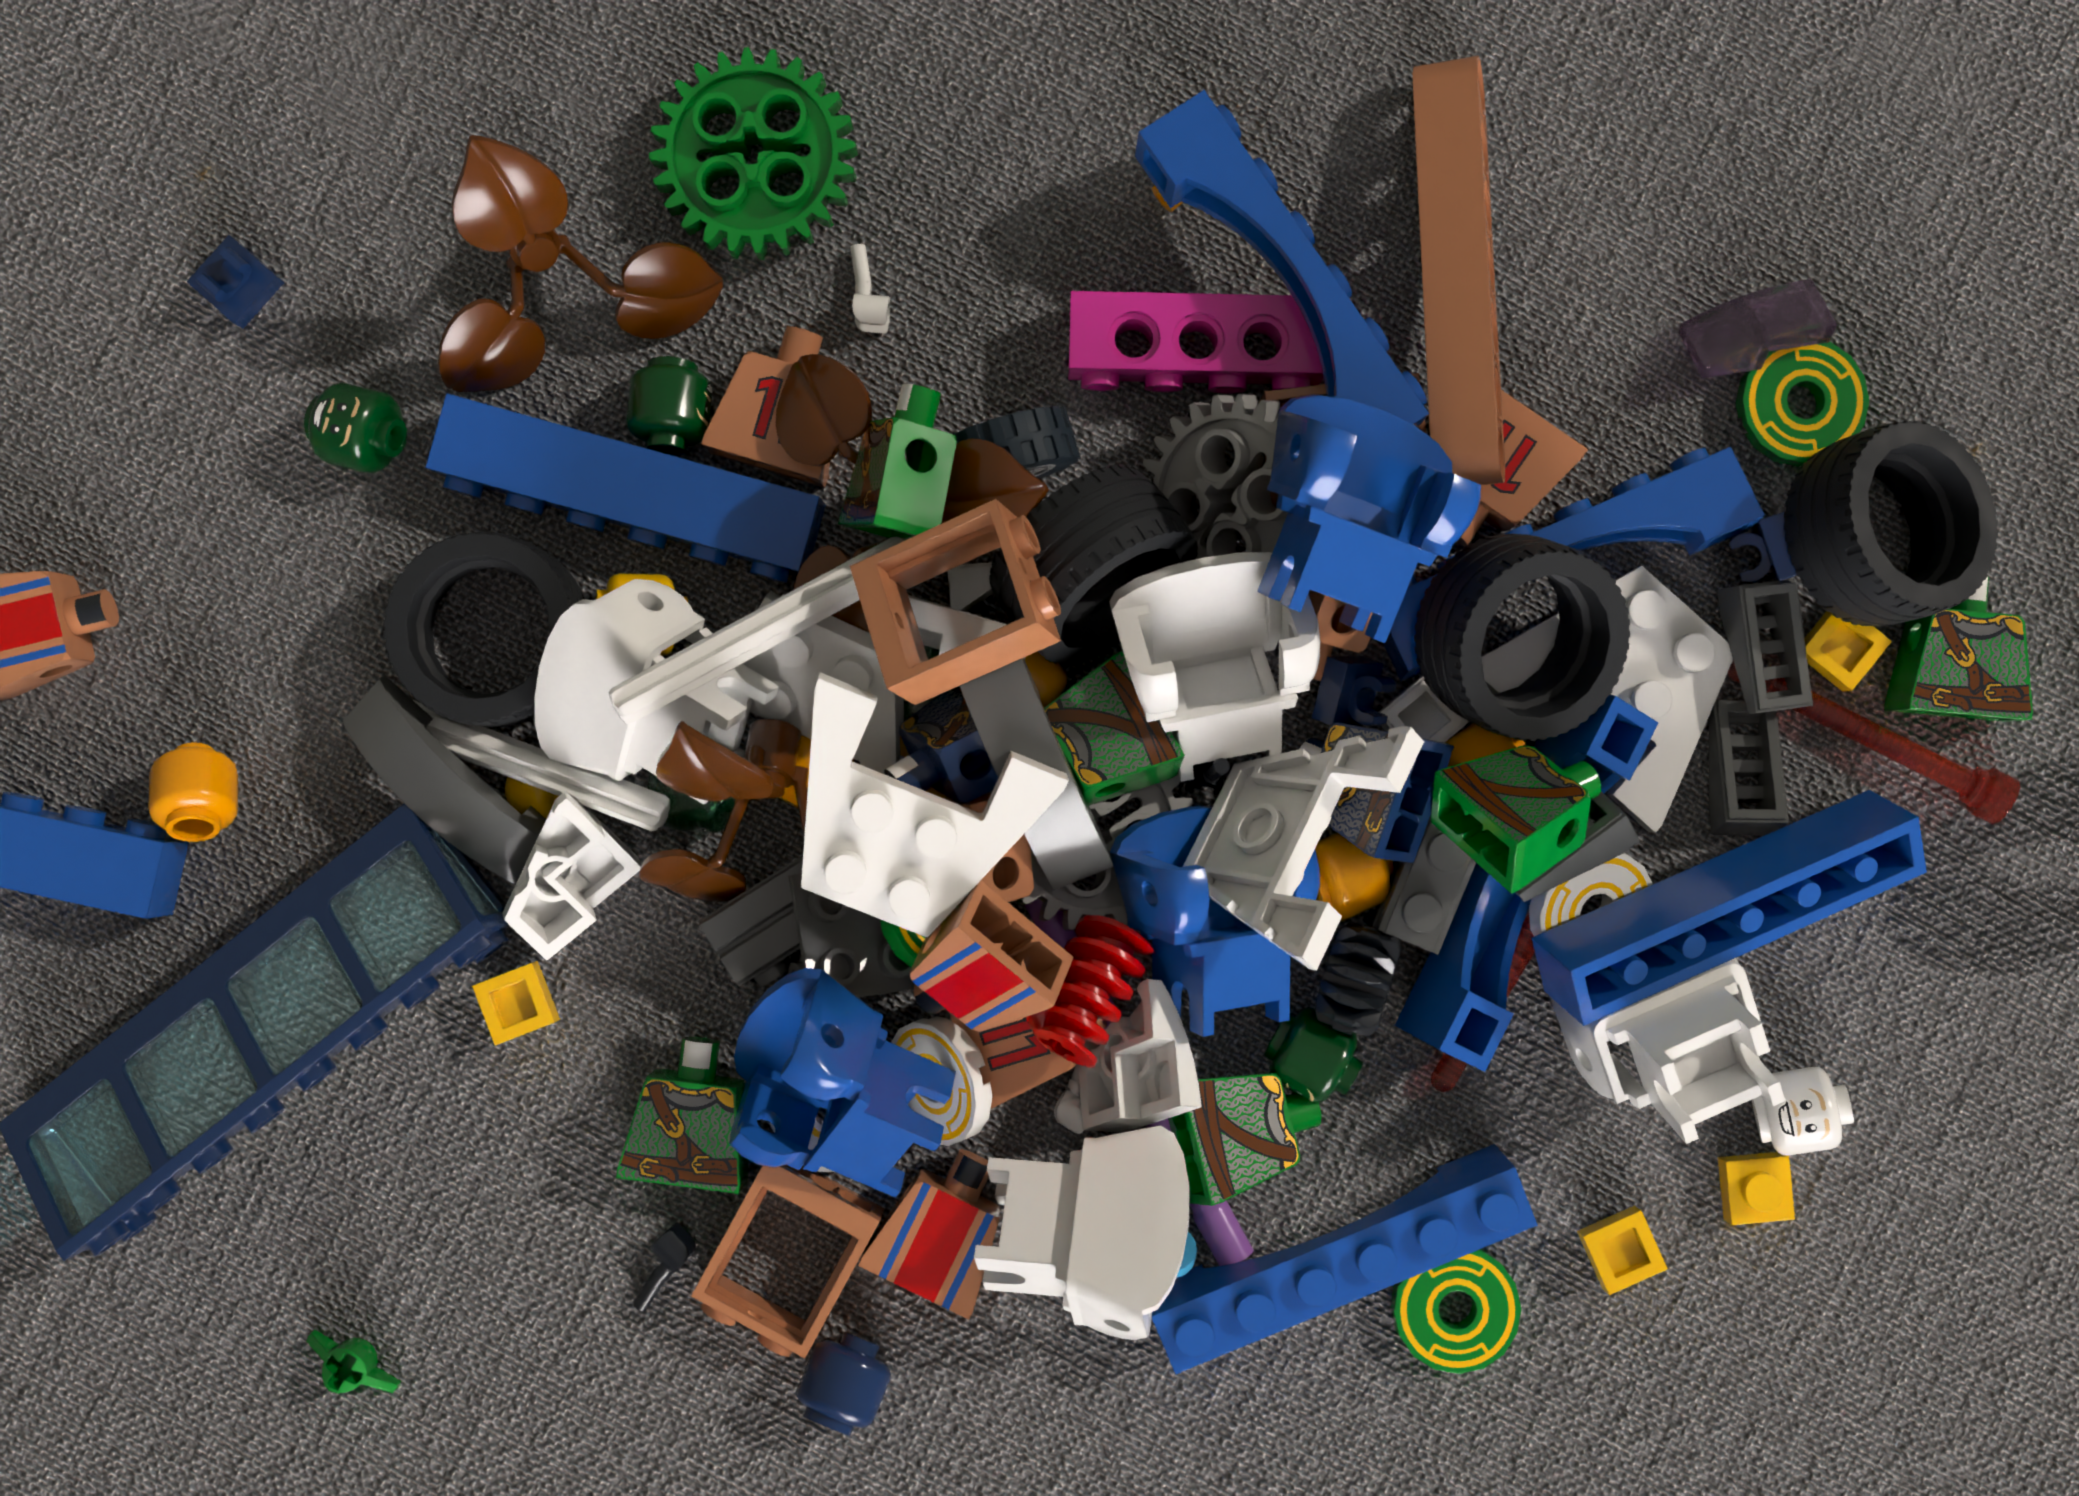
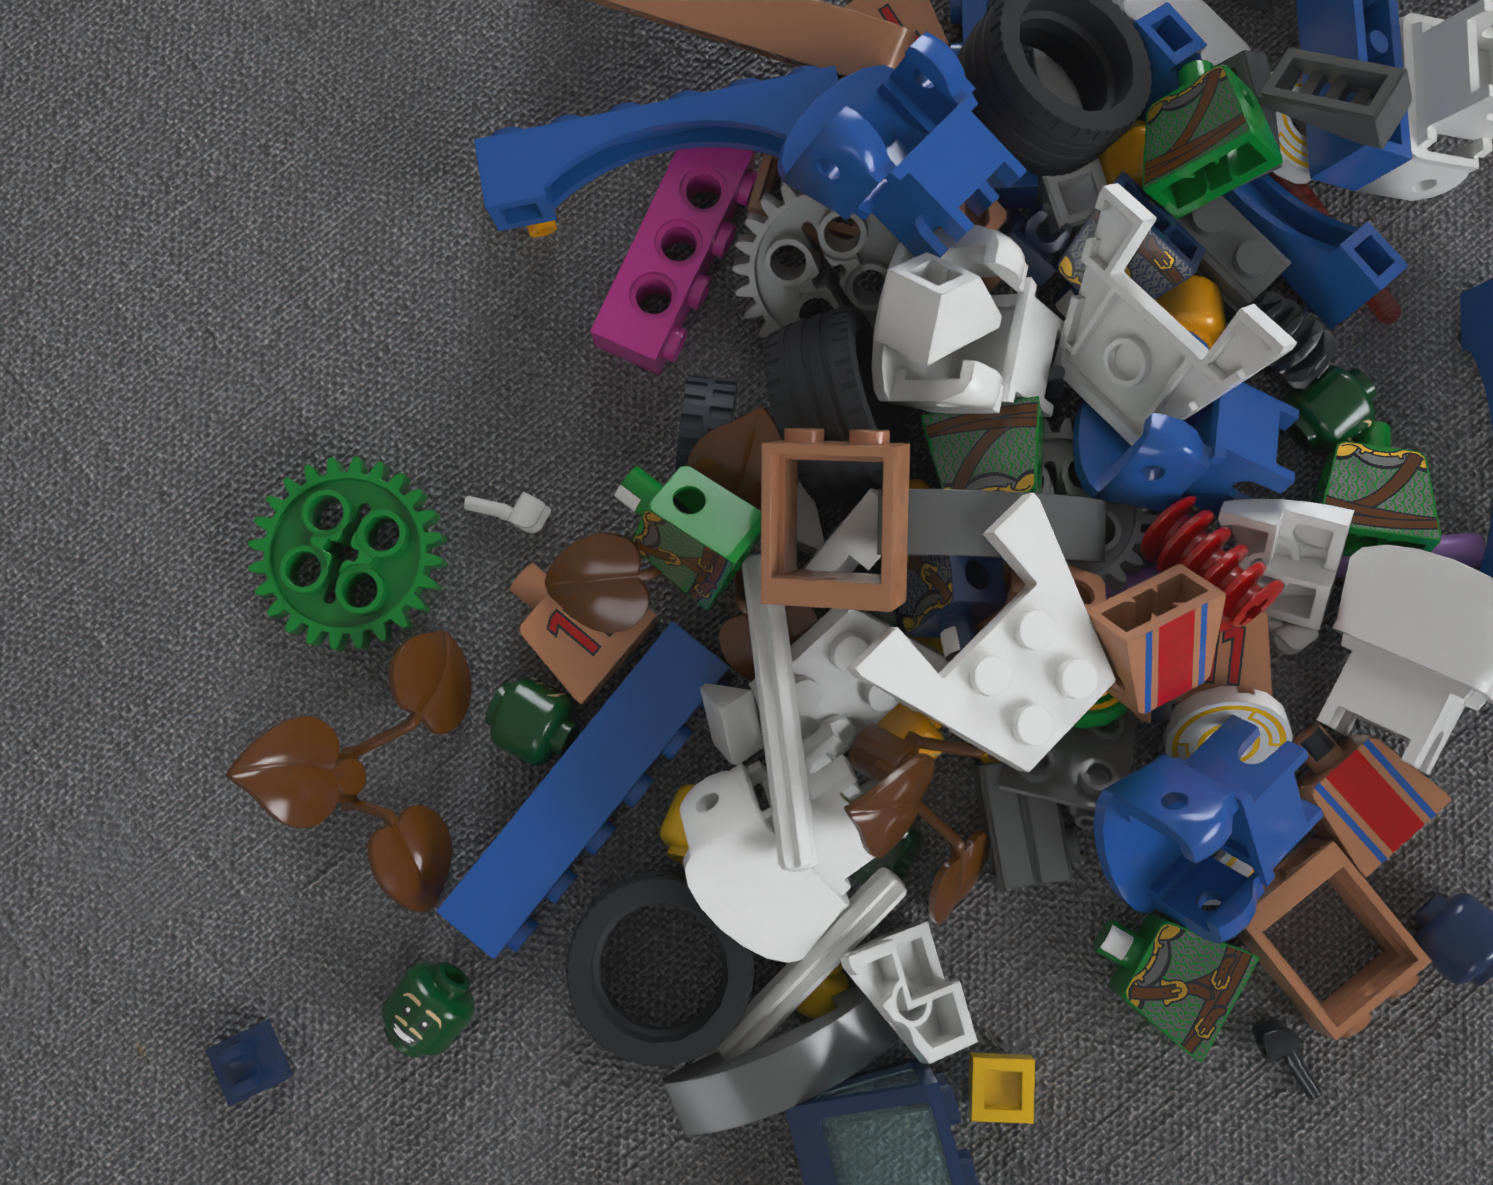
camera: 65 degrees left, 5 degrees down
(743, 593) = (732, 721): none -> white slope
(1210, 612) = (933, 309): none -> white slope
(1601, 962) = (1369, 119): none -> dark grey slope

